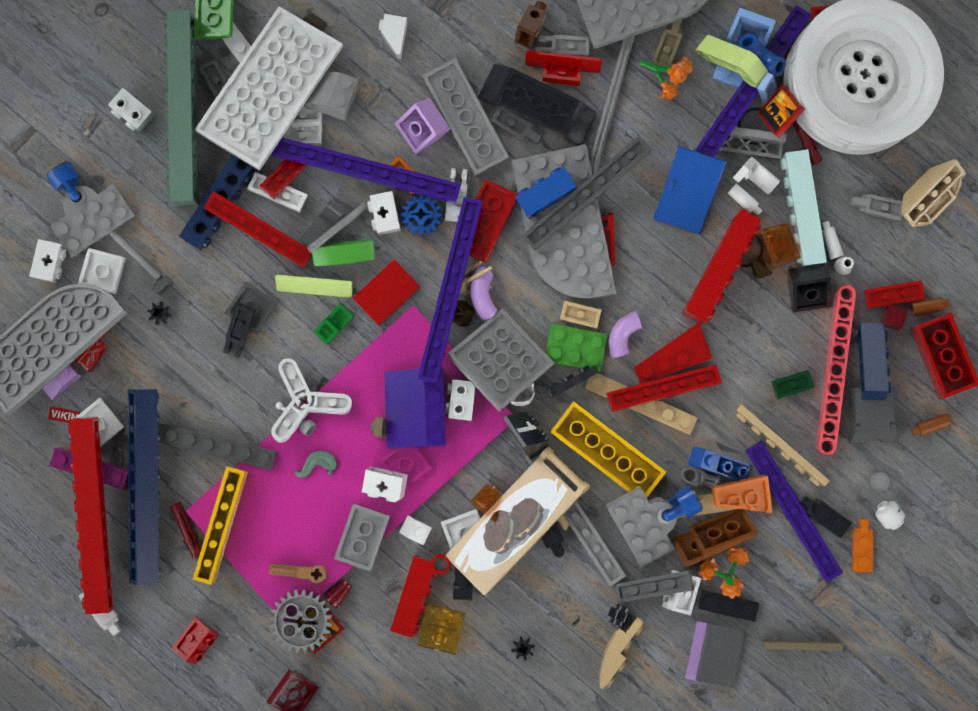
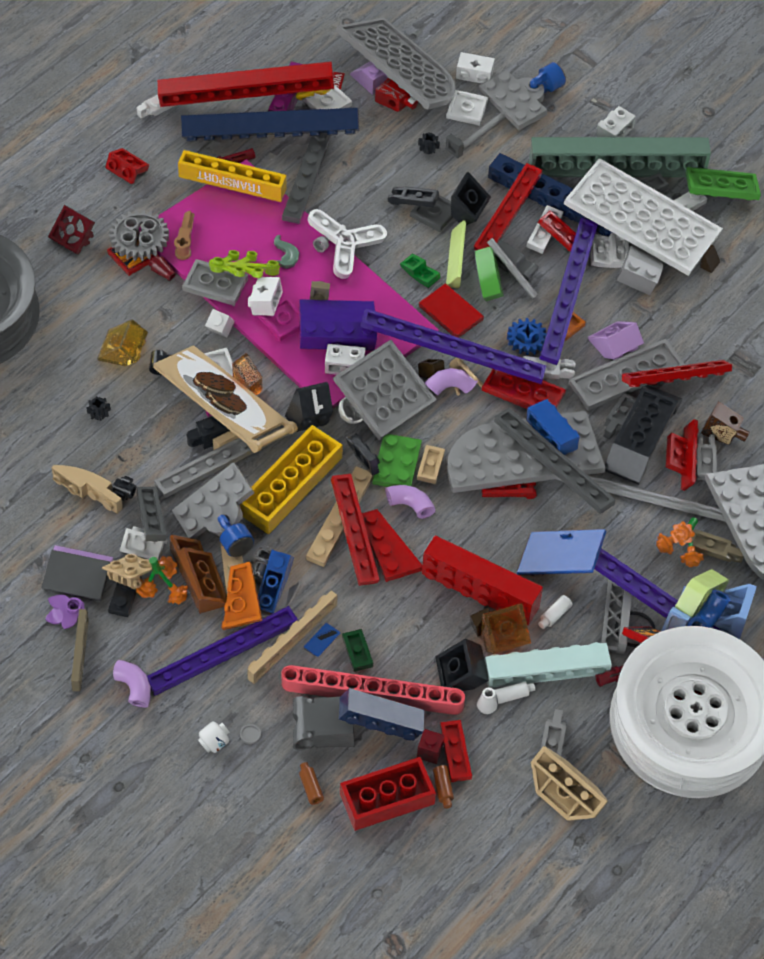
camera: 85 degrees right, 30 degrees down
(250, 269) = (468, 200): none -> black slope
(345, 509) = (243, 265): none -> lime plant
(391, 222) = (528, 306): white brick -> none
(394, 32) = (704, 319): white slope -> none
(414, 594) = (160, 323): red hinge -> none
(469, 66) = (682, 372): none -> red plate
(719, 602) = (128, 570): none -> tan hinge
(758, 174) = (589, 616): white bracket -> none
(758, 665) = (63, 610): none -> medium lavender plate
(777, 418) = (322, 639): none -> blue sticker
(826, 516) = (215, 680): black hinge -> none
(835, 589) = (136, 680): none -> lavender cylinder
(862, 547) = (180, 714): orange hinge -> none

